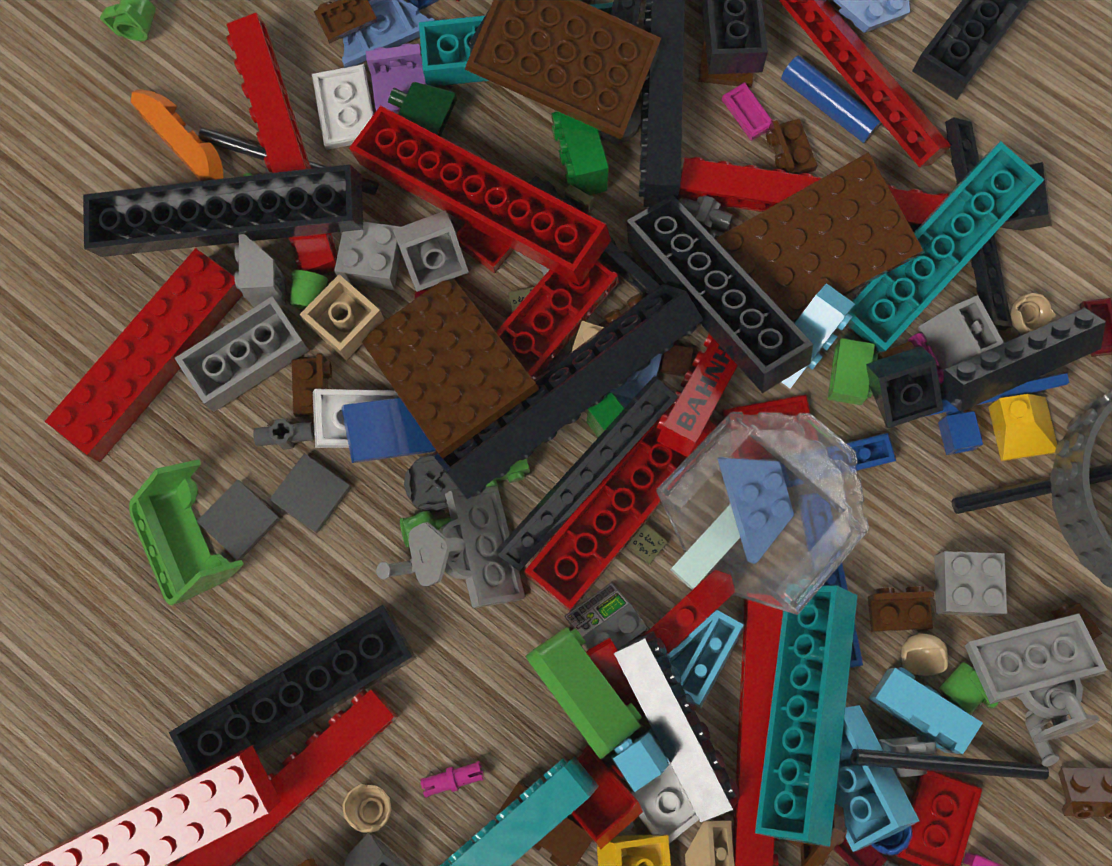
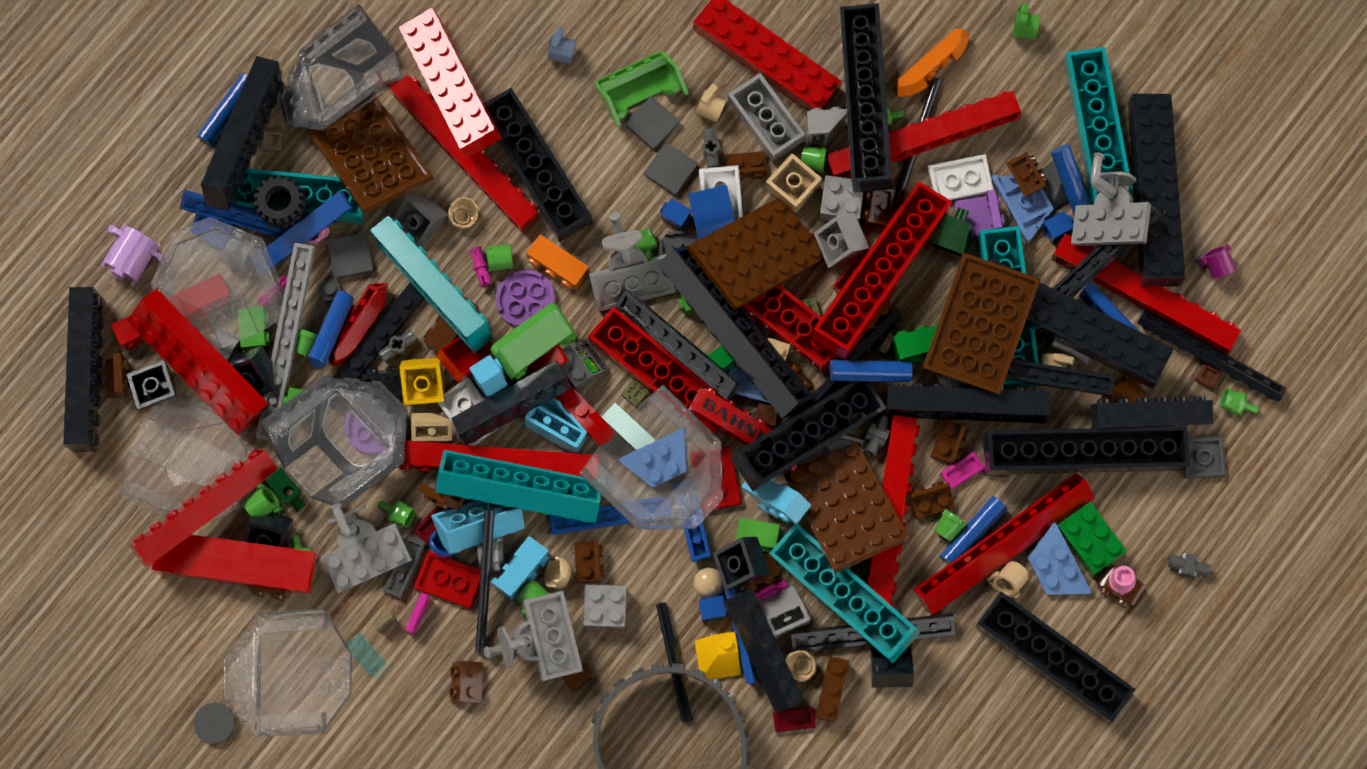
camera: 90 degrees right, 0 degrees up
(111, 655) = (561, 48): none -> sand blue piece
(216, 433) = (710, 104): none -> tan piece
(380, 484) = (675, 214): none -> blue brick
(385, 206) = (877, 207): none -> reddish brown bracket
(439, 748) = (499, 257): none -> bright green piece
(450, 659) = (557, 263): none -> orange brick
(503, 709) = (523, 296): none -> medium lavender tile
(623, 209) = (870, 370): none -> blue brick
(710, 123) = (948, 441): none -> reddish brown bracket
(827, 124) = (949, 525): none -> bright green piece
(898, 50) = (1009, 579): none -> tan piece
(920, 440) = (708, 583): none -> tan hair
(1062, 274) = (832, 689): none -> reddish brown brick

